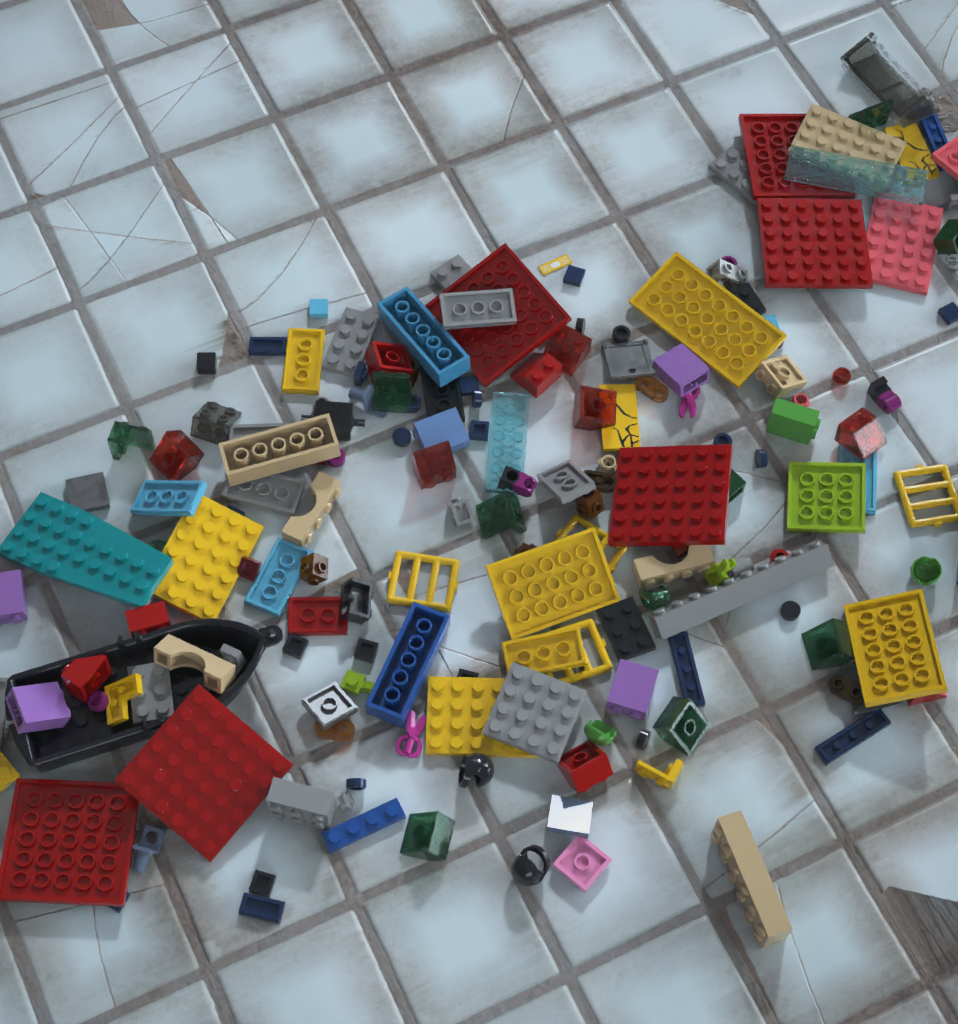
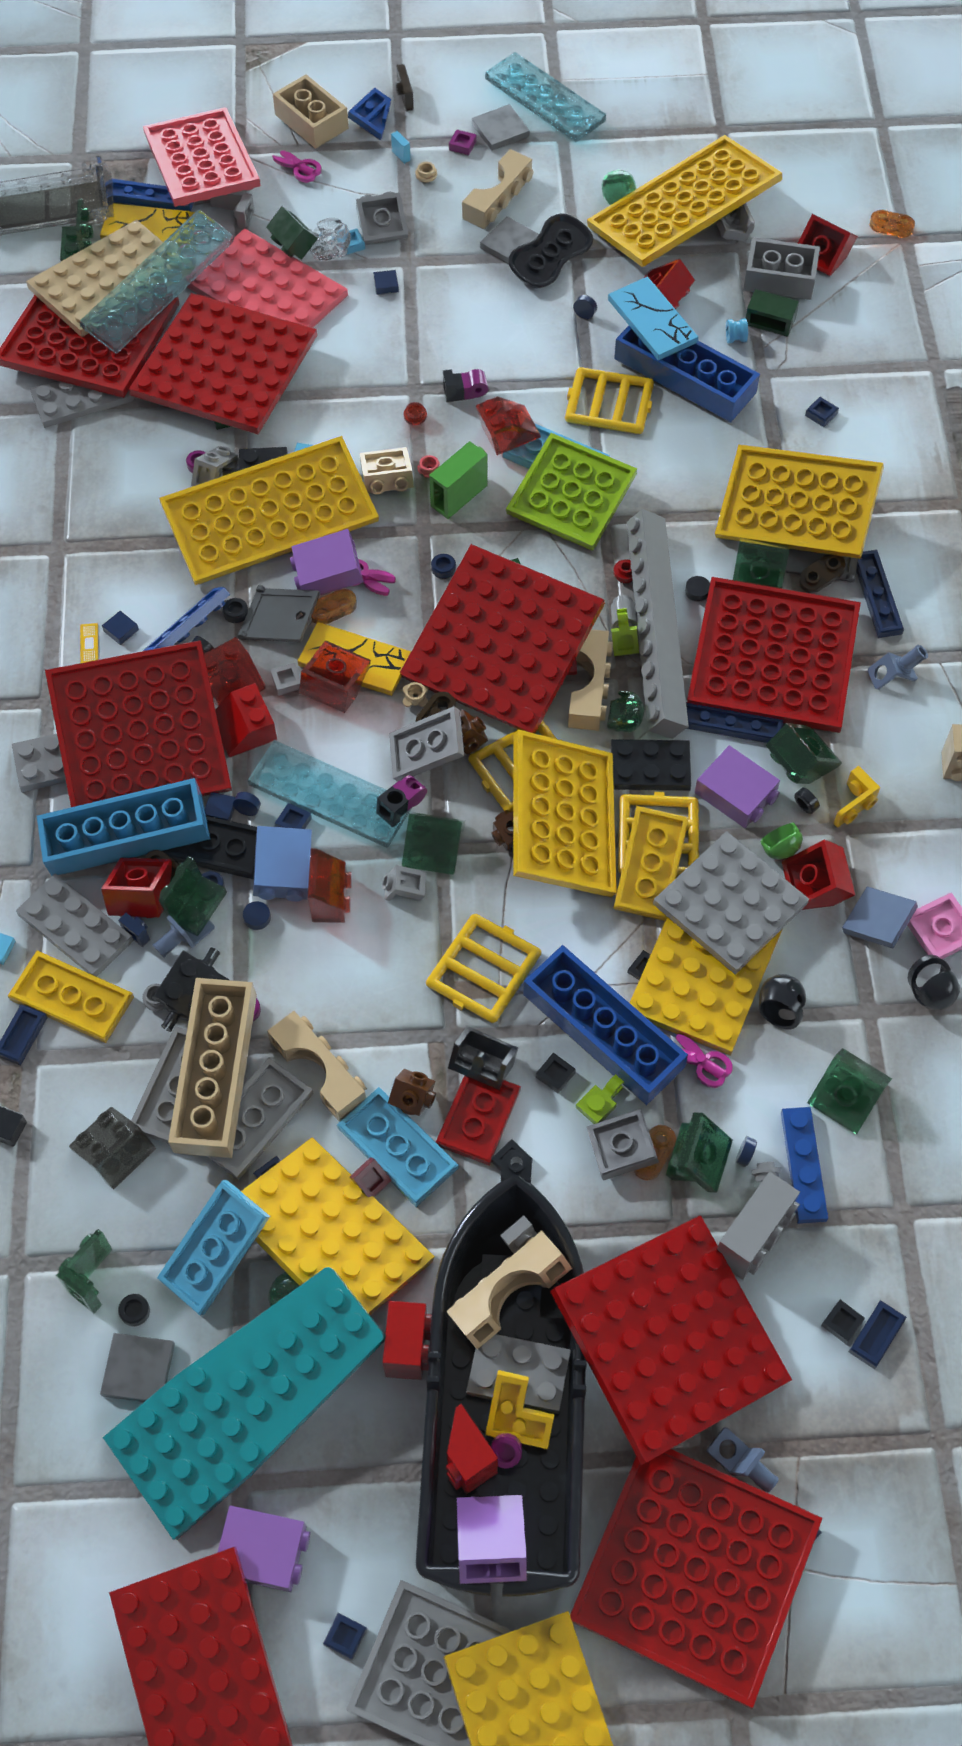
camera: 65 degrees left, 0 degrees up
(121, 477) = (134, 1310): none -> black tile
(176, 455) = (141, 1218): clear red slope -> none
(341, 755) = (700, 1153): none -> clear green bracket
(477, 308) = (127, 741): light grey plate -> none
(580, 379) = (286, 678): none -> light grey plate
(588, 308) = (192, 618): none -> plate
(759, 680) = (775, 653): none -> red plate
(761, 458) = (487, 534): dark blue tile -> none
(789, 767) = (897, 666): none -> sand blue bracket
(925, 571) = (708, 438): bright green hair -> none

